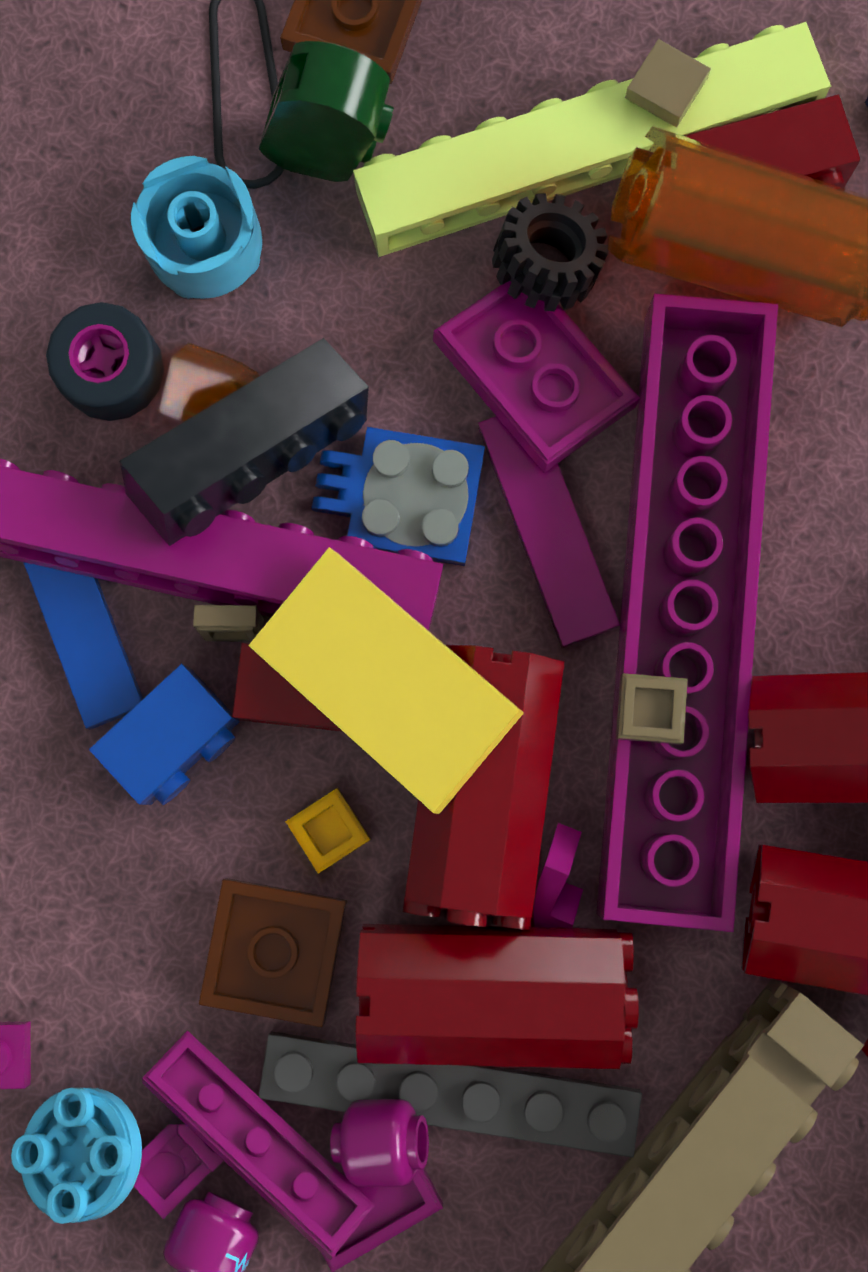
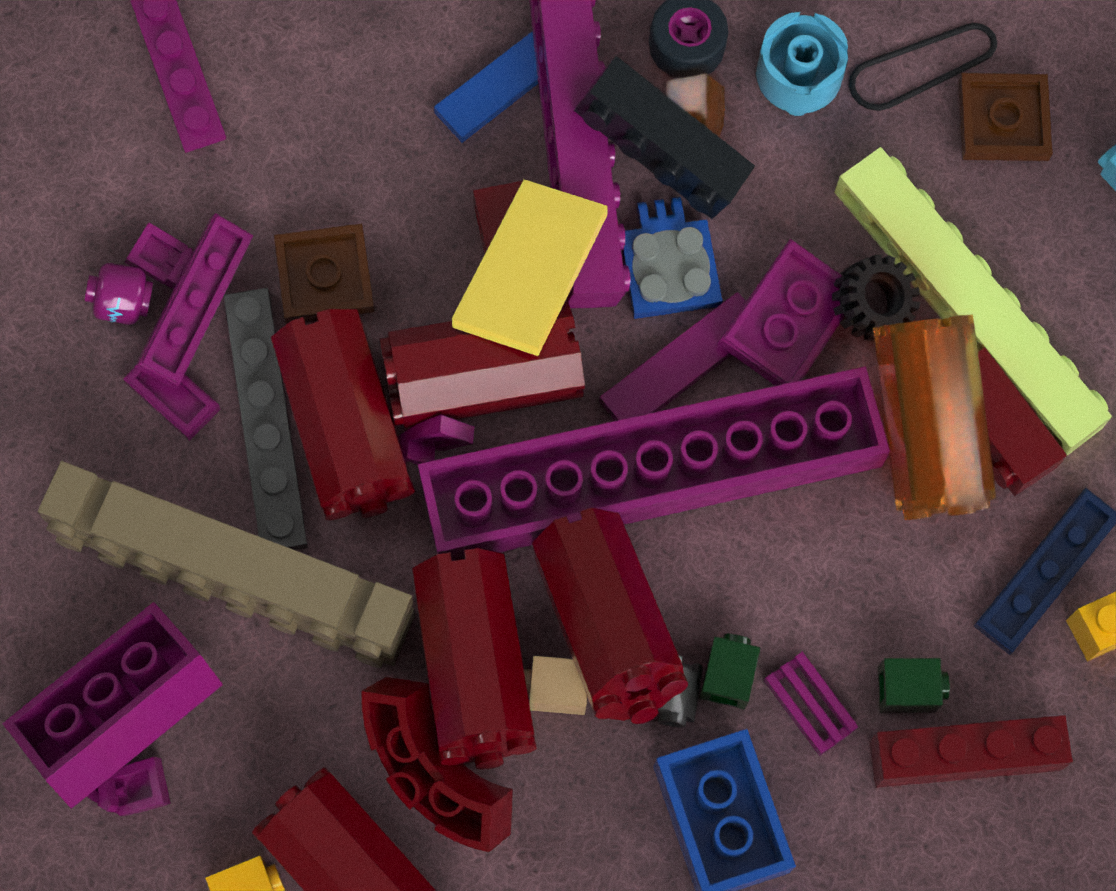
camera: 60 degrees right, 10 degrees down
(79, 1154) = (152, 193): medium azure tile -> none
(166, 737) = (445, 157): blue brick -> none
(227, 622) = (535, 166): dark tan tile -> none
(326, 112) = (908, 111): dark green brick -> none
(328, 830) = (417, 285): yellow tile -> none
(380, 1142) = (220, 377): magenta head -> none
(651, 708) = (571, 449): dark tan tile -> none
(667, 83) = (1024, 331): dark tan tile -> none

